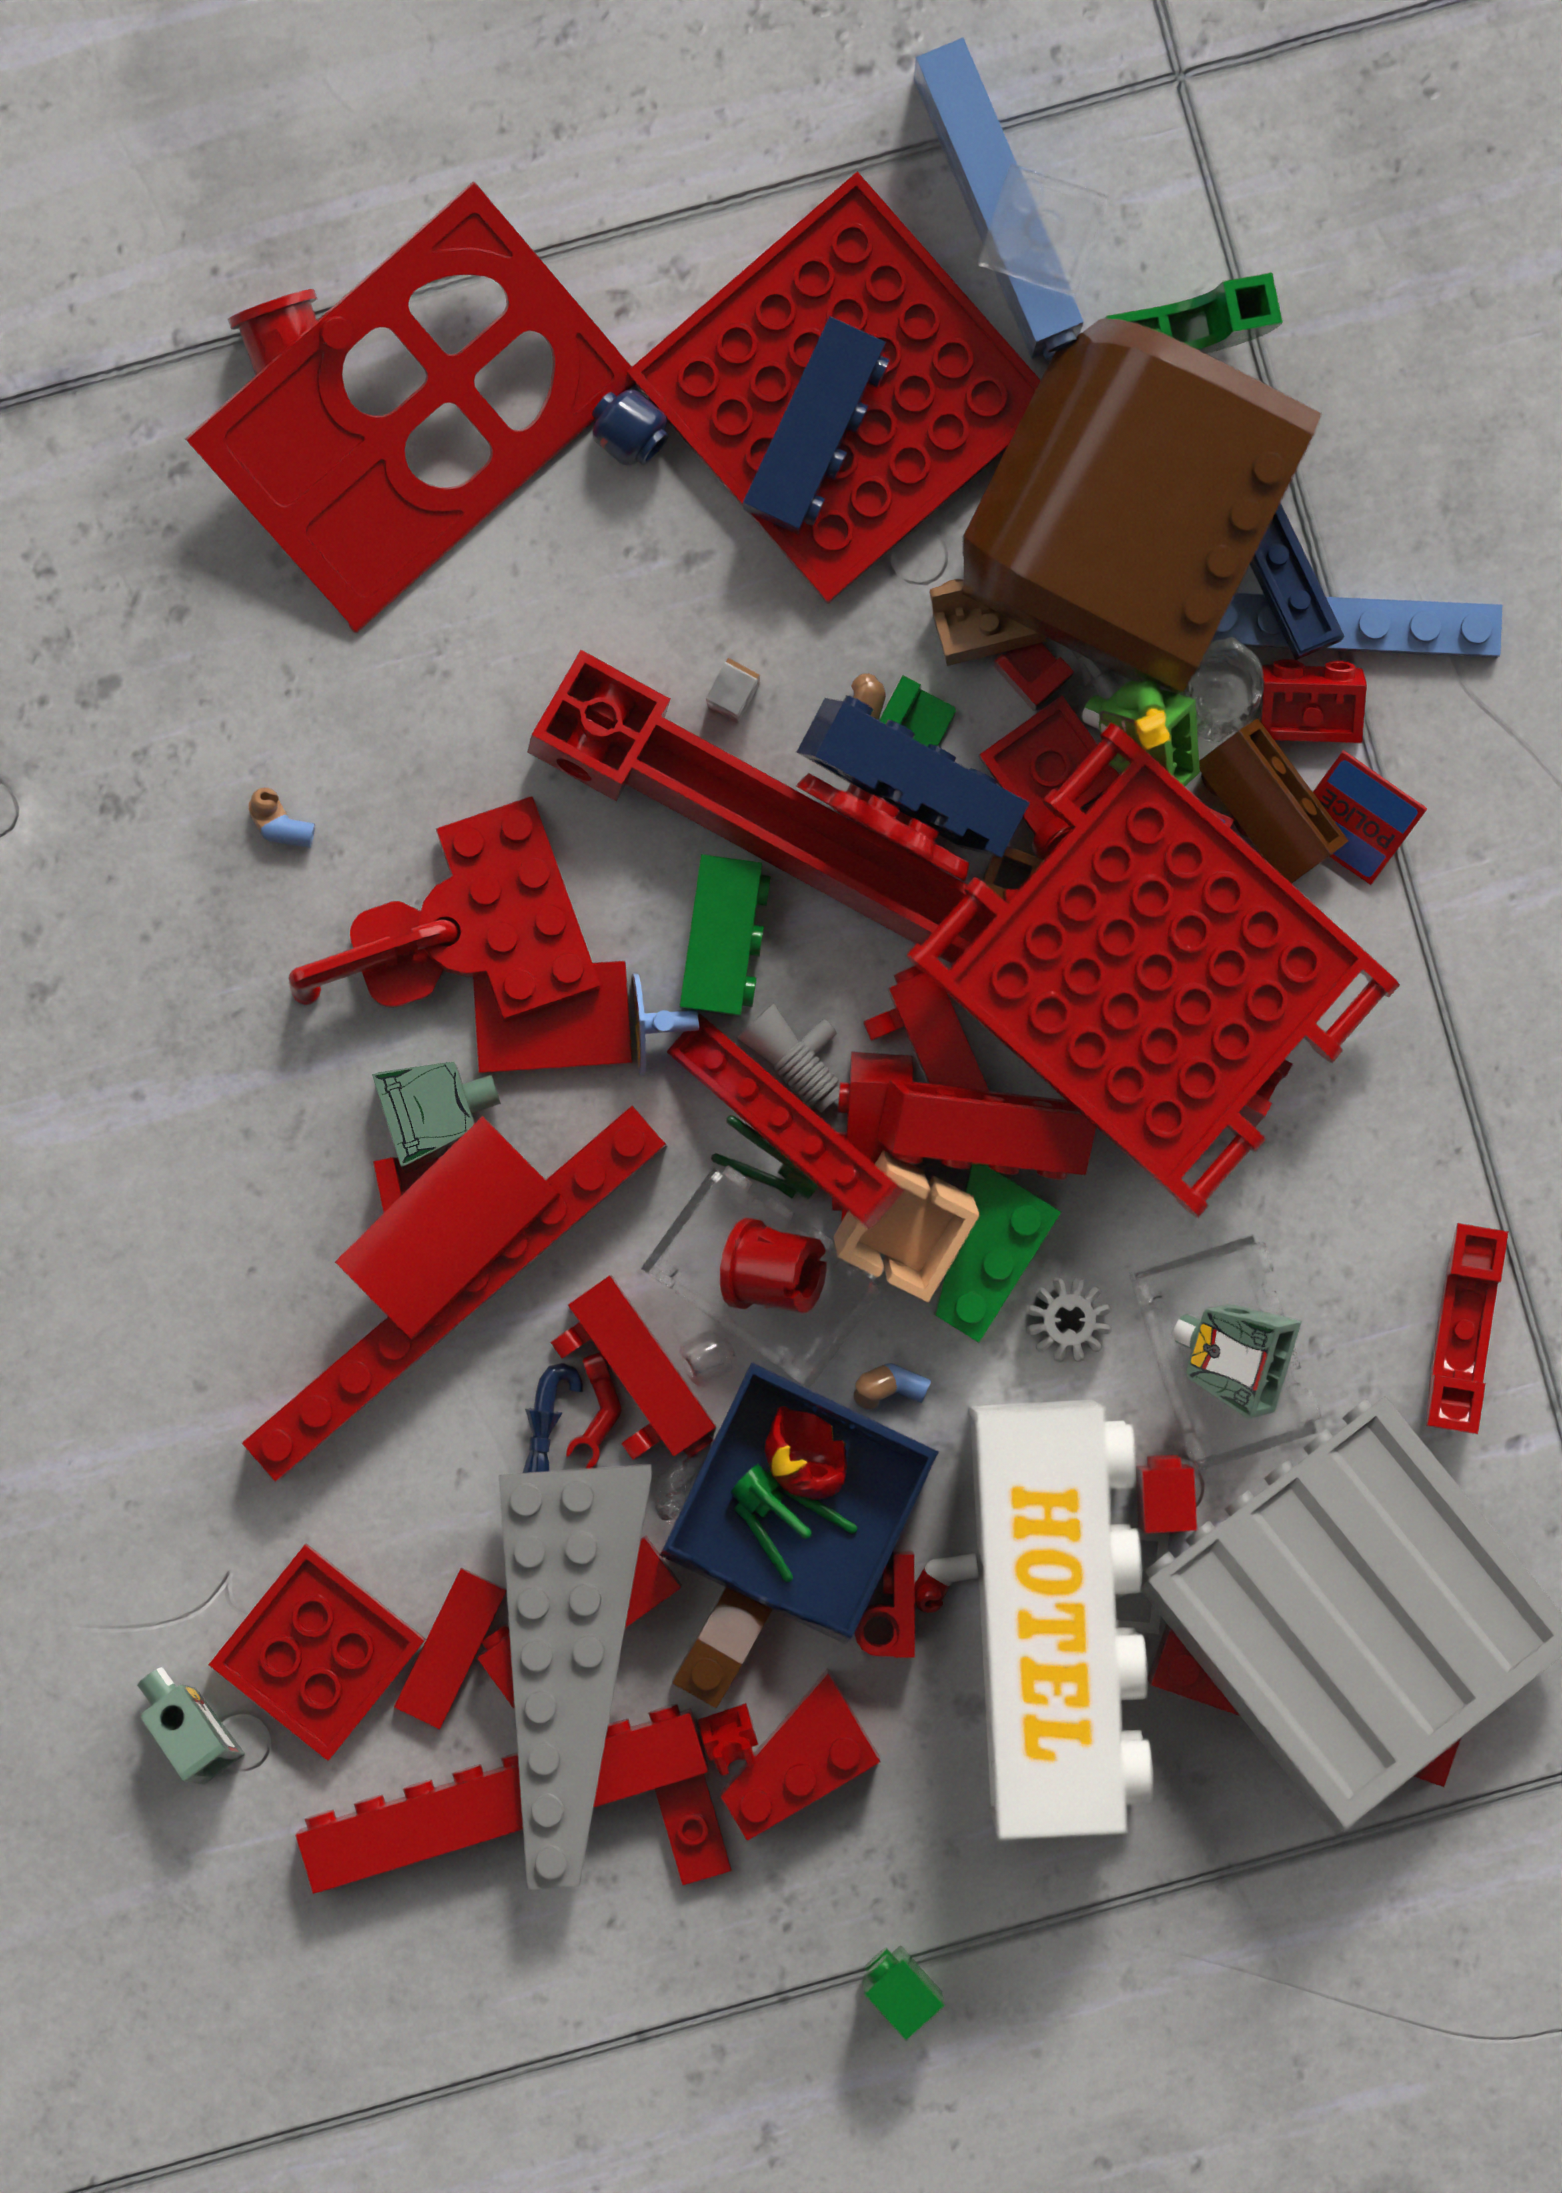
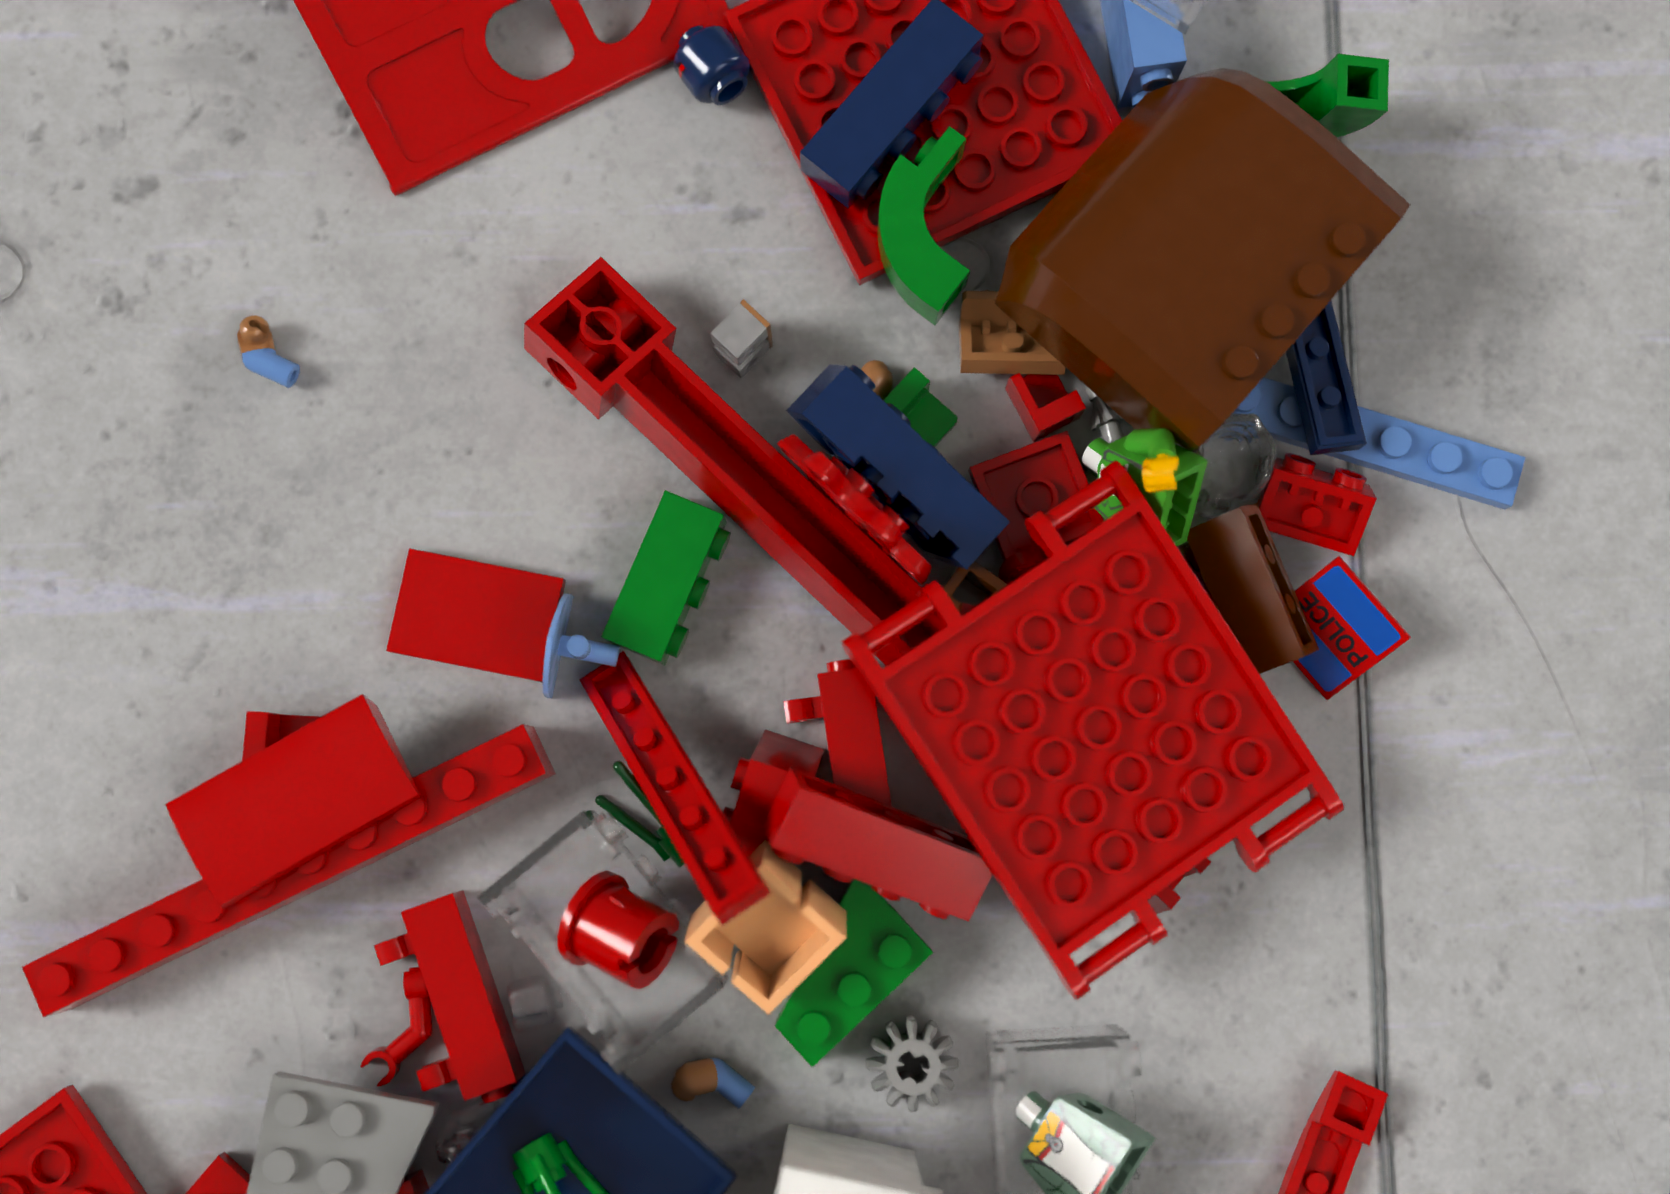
camera: 10 degrees right, 5 degrees down
(430, 1109) = (321, 671): sand green torso -> none
(509, 917) = (458, 510): red plate -> none
(543, 1417) = (349, 1019): dark blue piece -> none
(793, 1059) = (703, 721): light grey piece -> none
(805, 1455) = (600, 1138): red hair -> none
(869, 569) = (912, 260): none -> green arch

